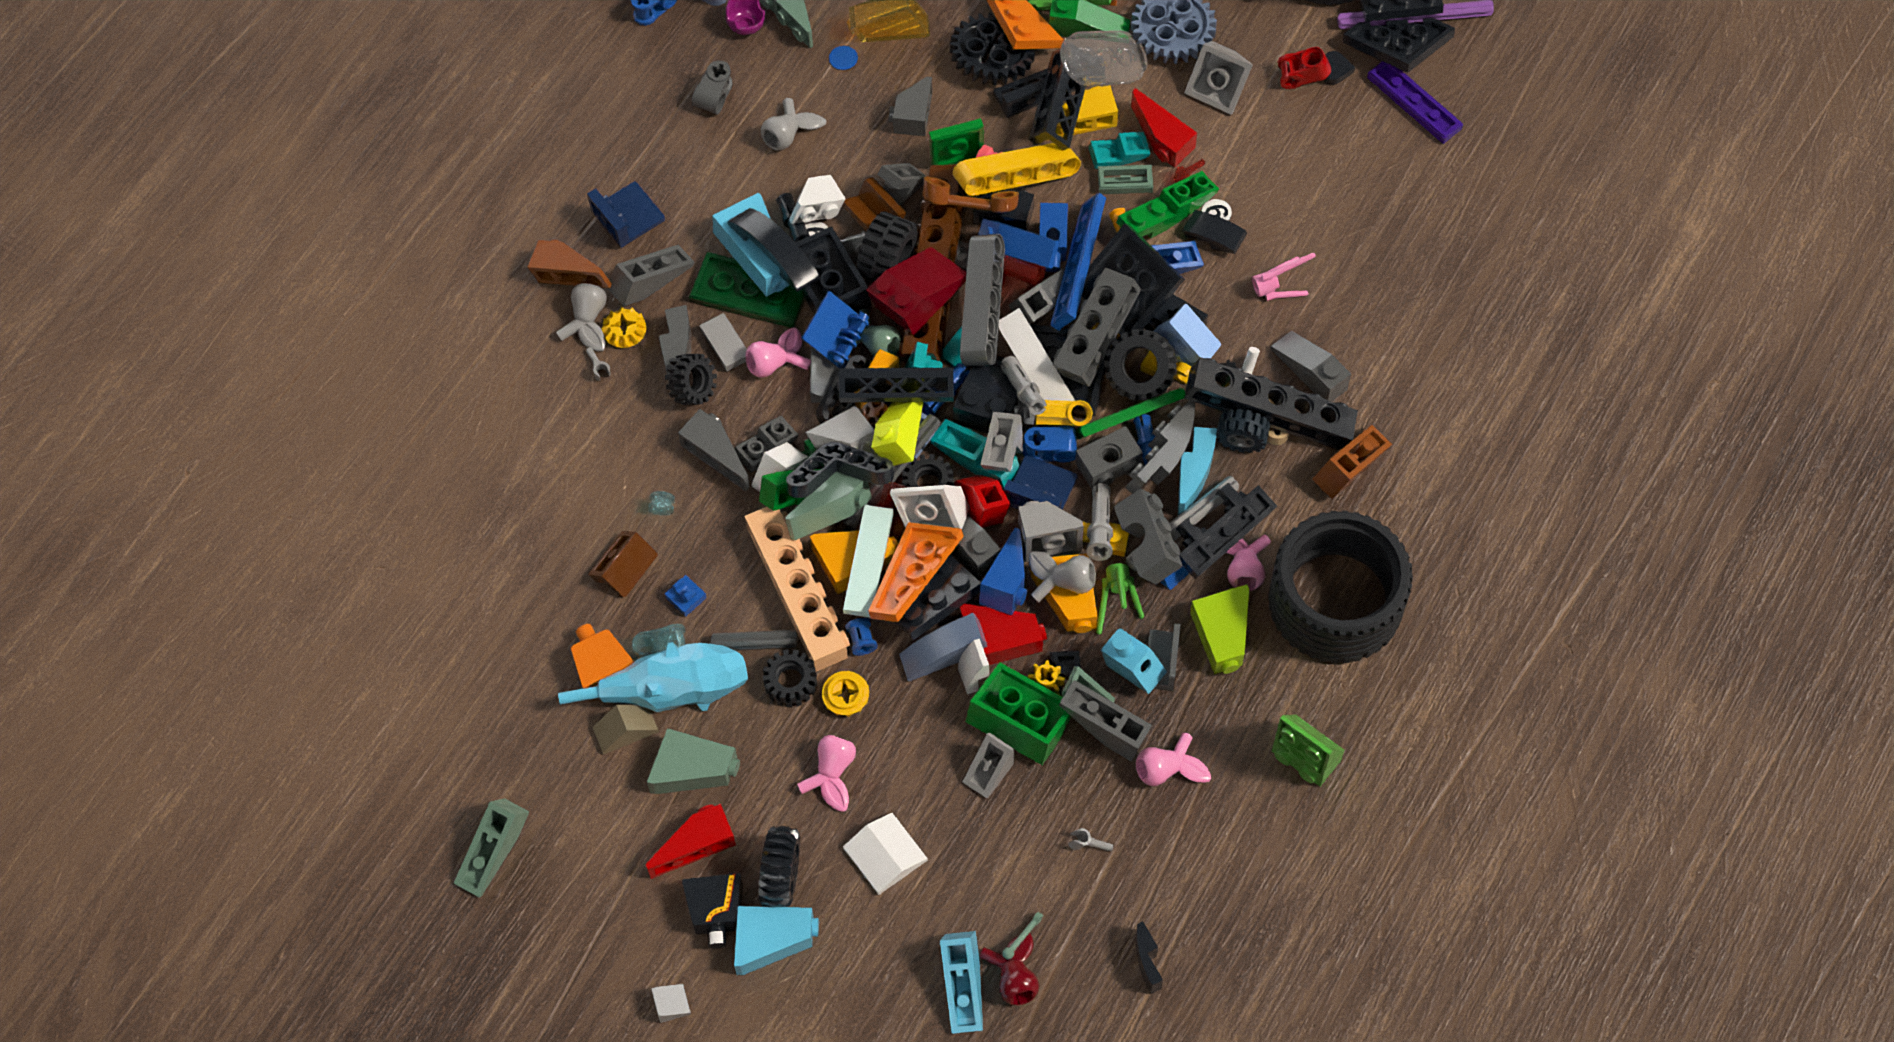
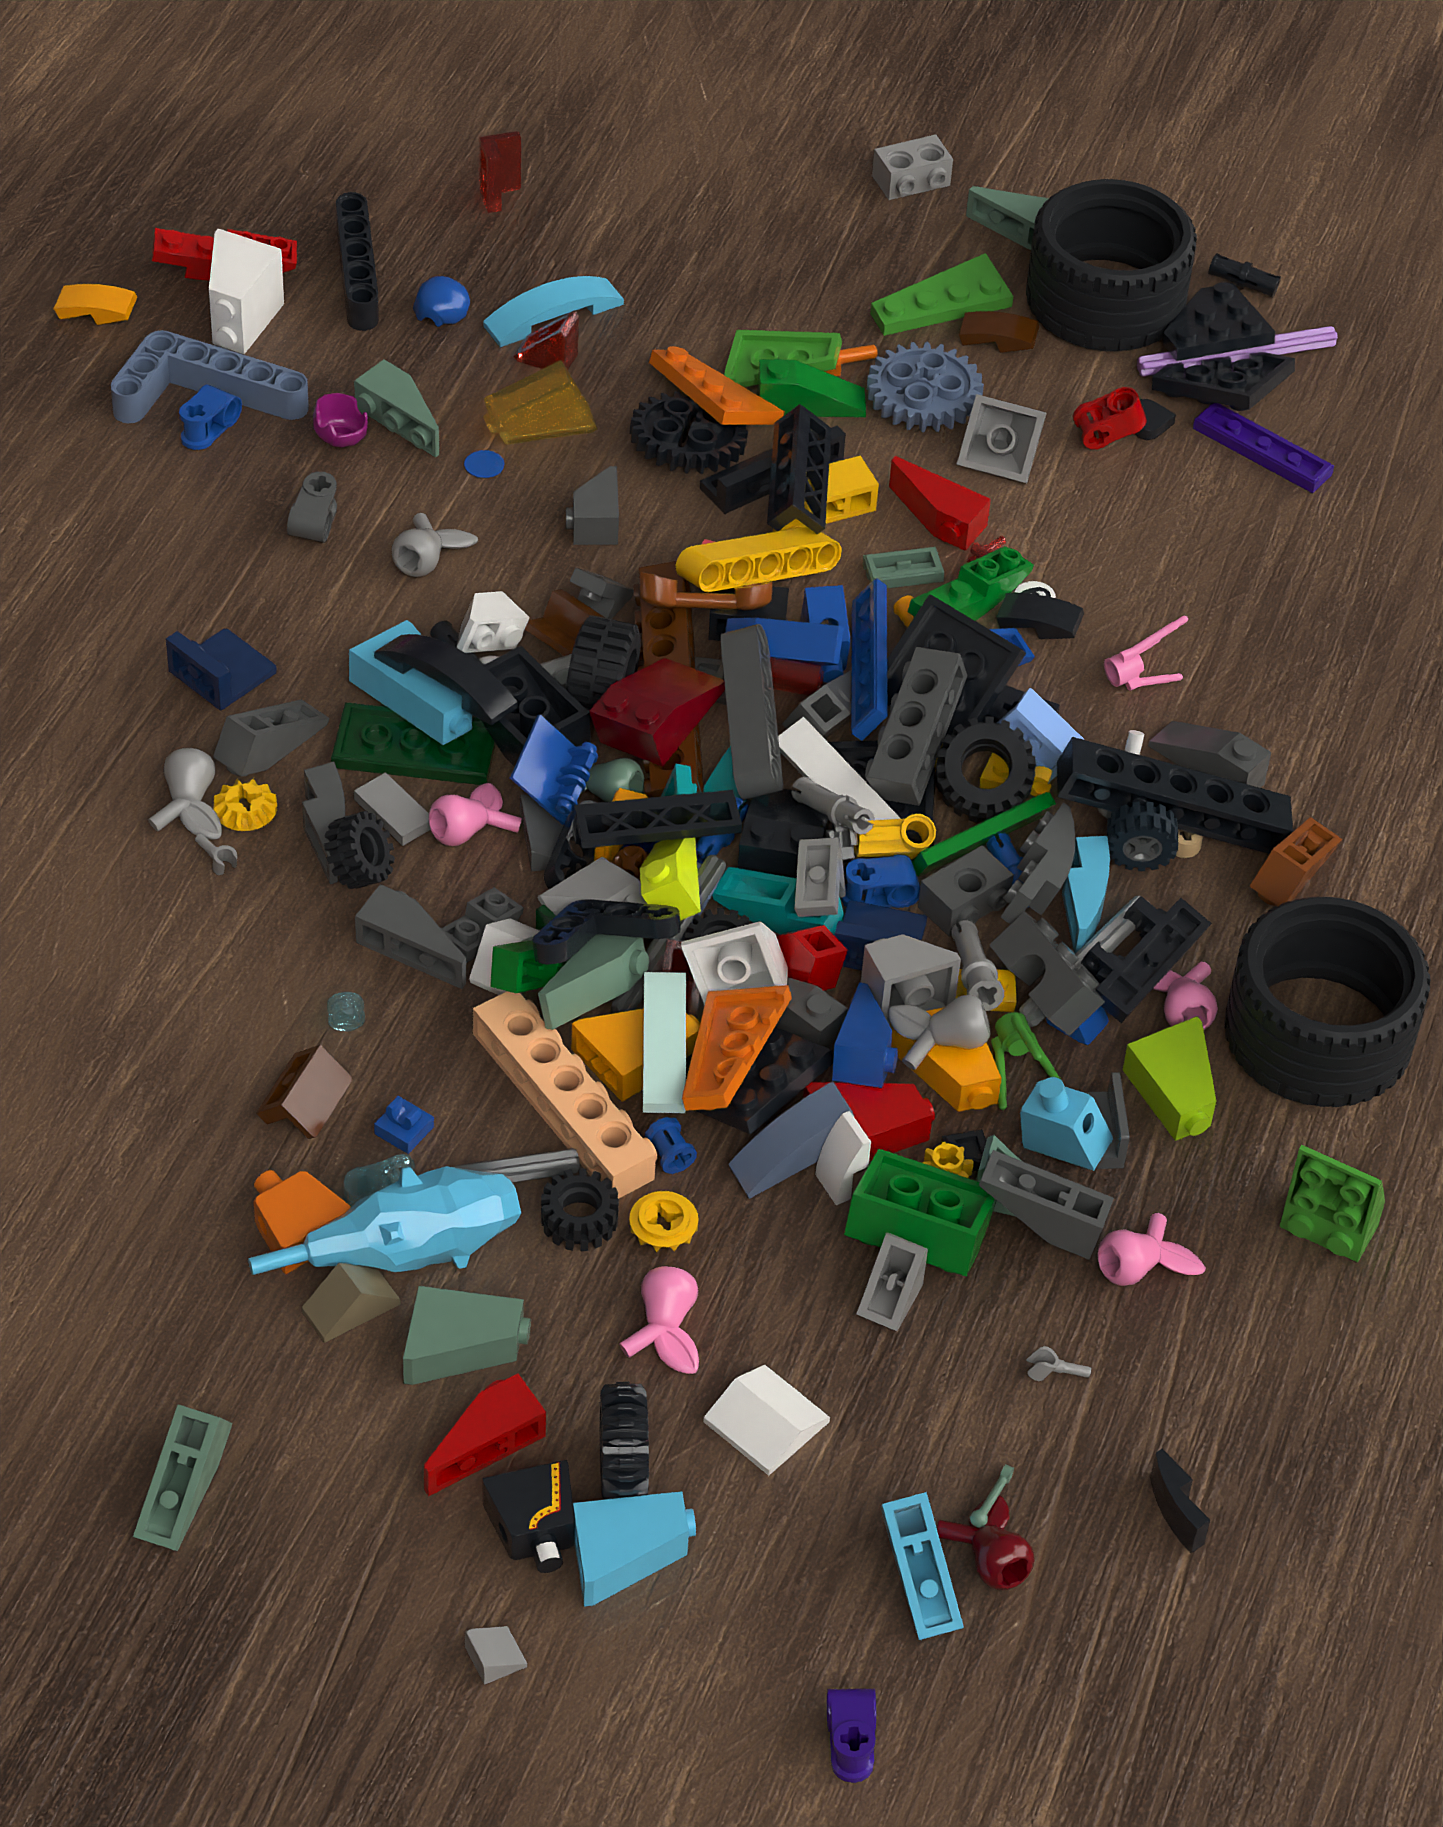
camera: 15 degrees left, 15 degrees down
(559, 264) = (150, 732): dark orange slope -> none
(956, 142) = (666, 533): green tile -> none
(1103, 58) = (845, 423): clear tile -> none
(1124, 150) = (894, 533): teal slope -> none

